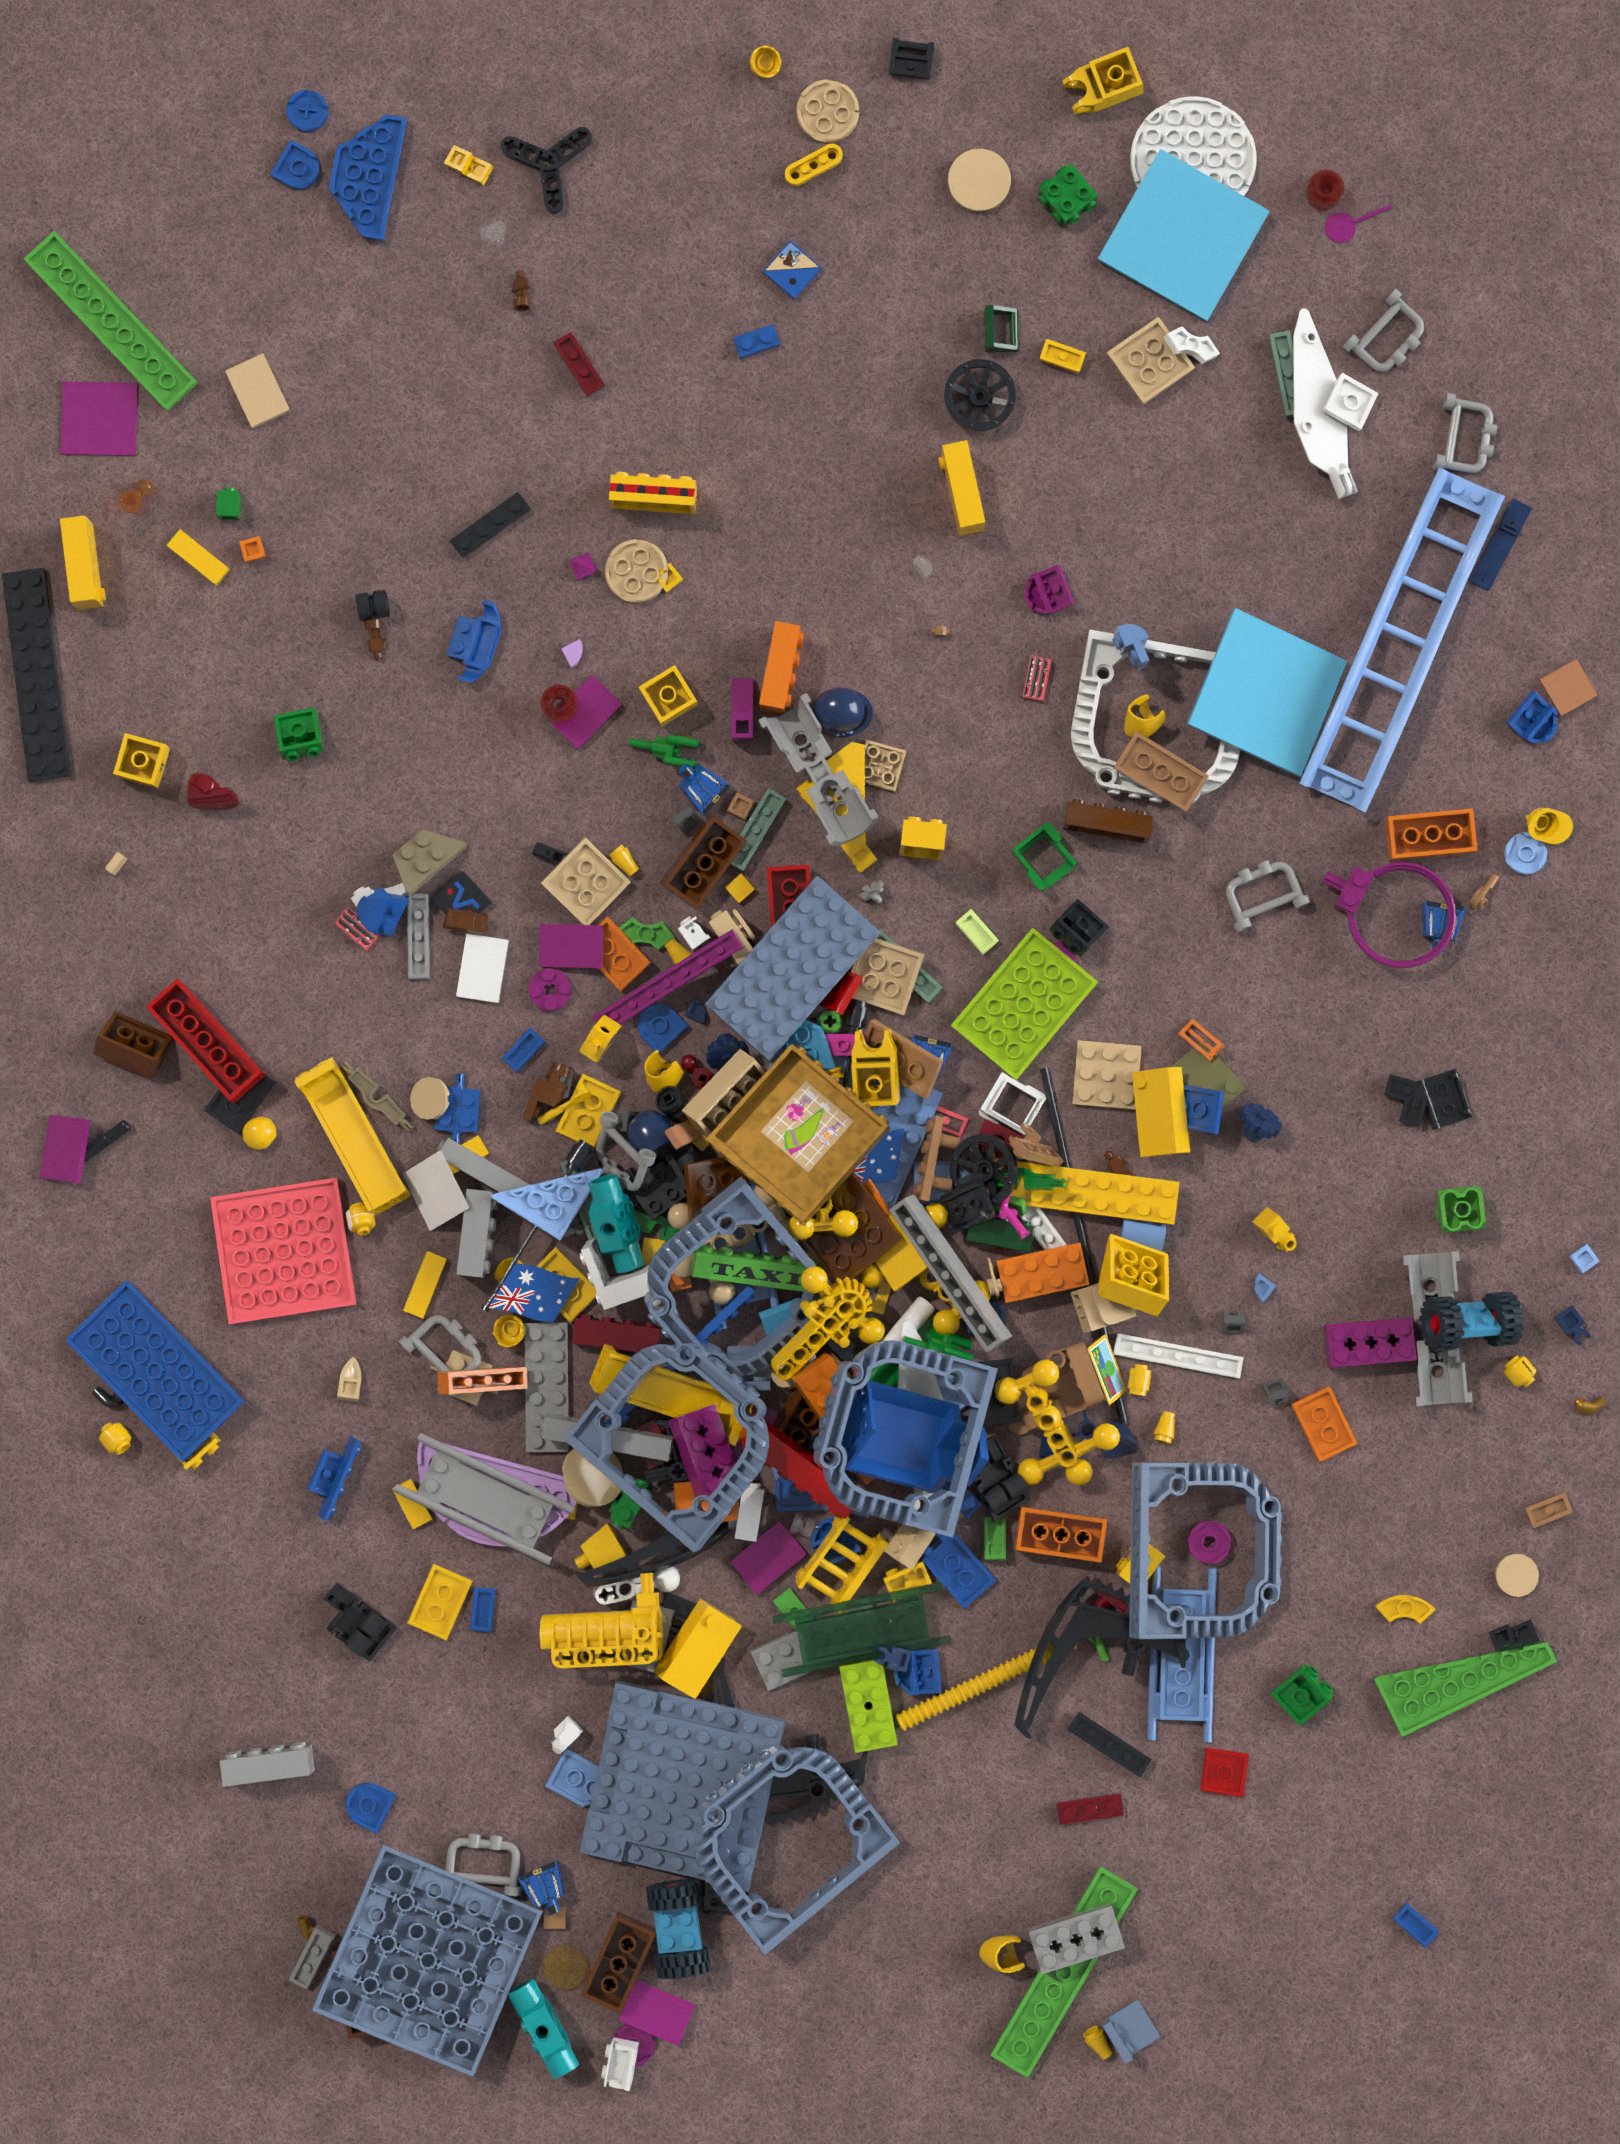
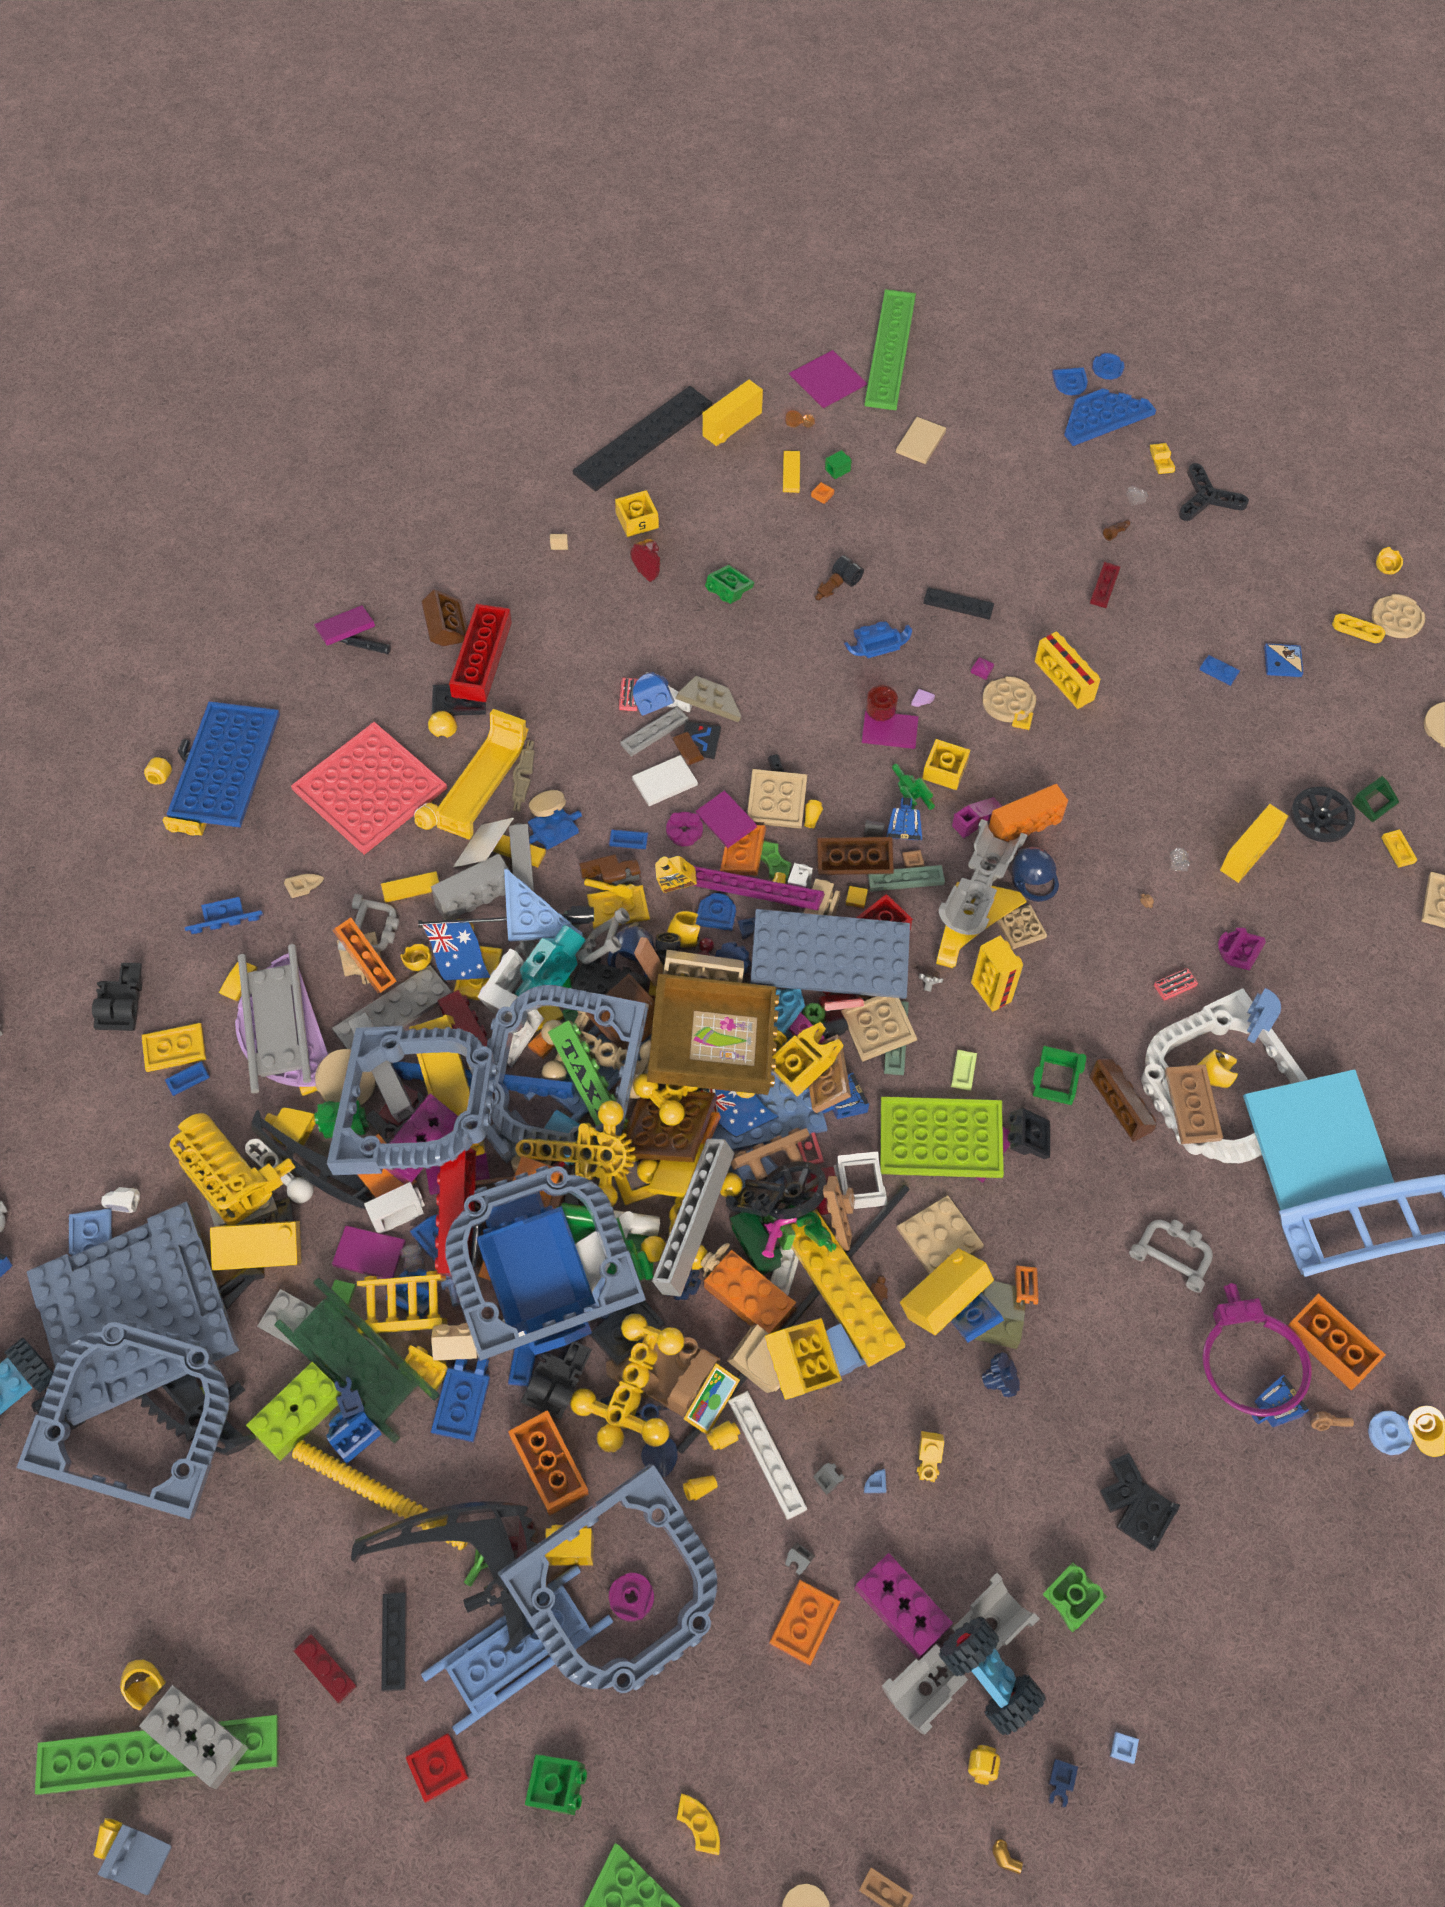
camera: 50 degrees right, 25 degrees down
(994, 1539) = (506, 1415): bright green plate -> none

